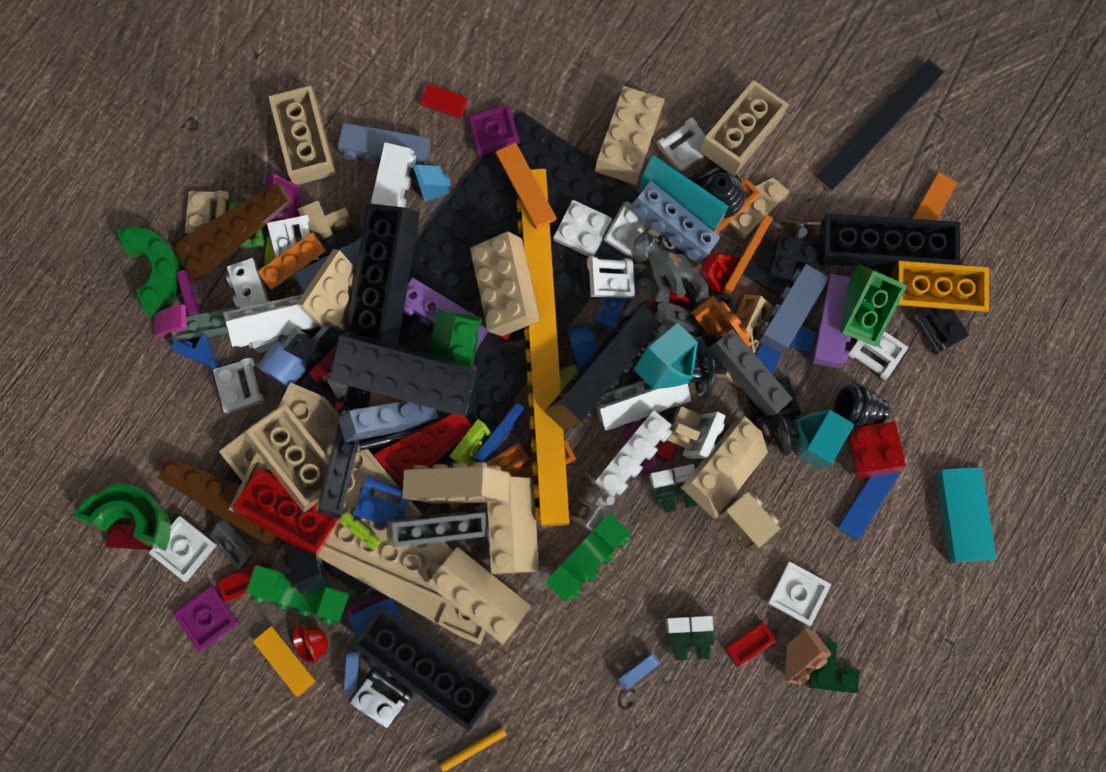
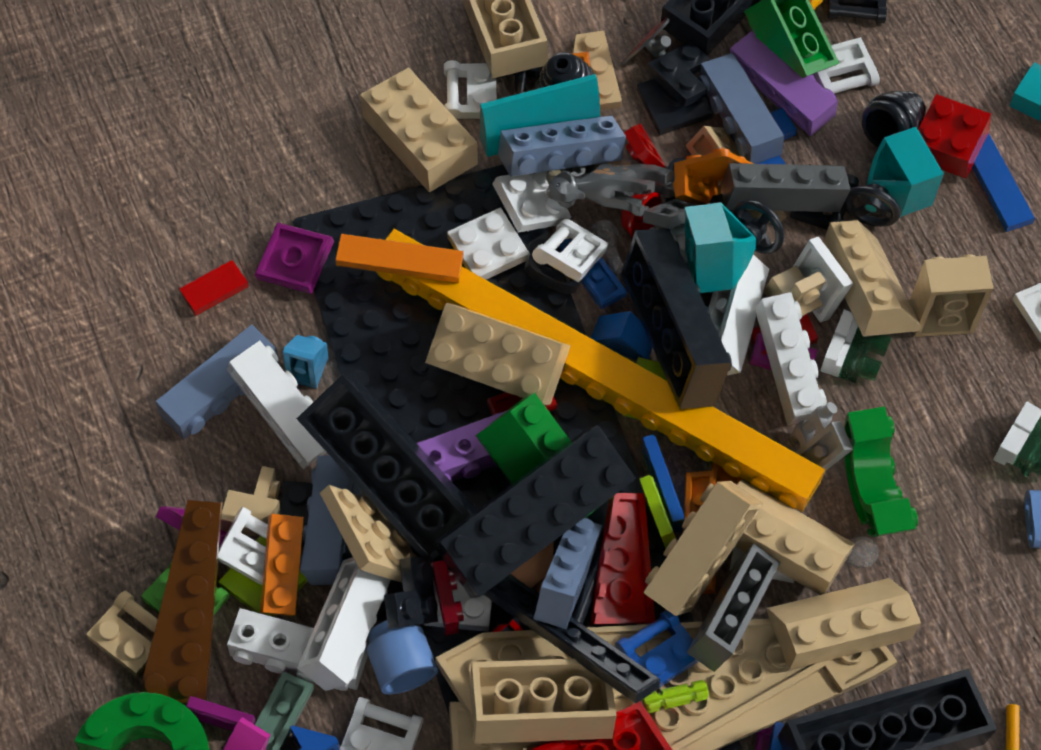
camera: 55 degrees left, 15 degrees down
(302, 135) = (130, 456): tan brick -> none
(744, 260) = (645, 112): orange tile -> none

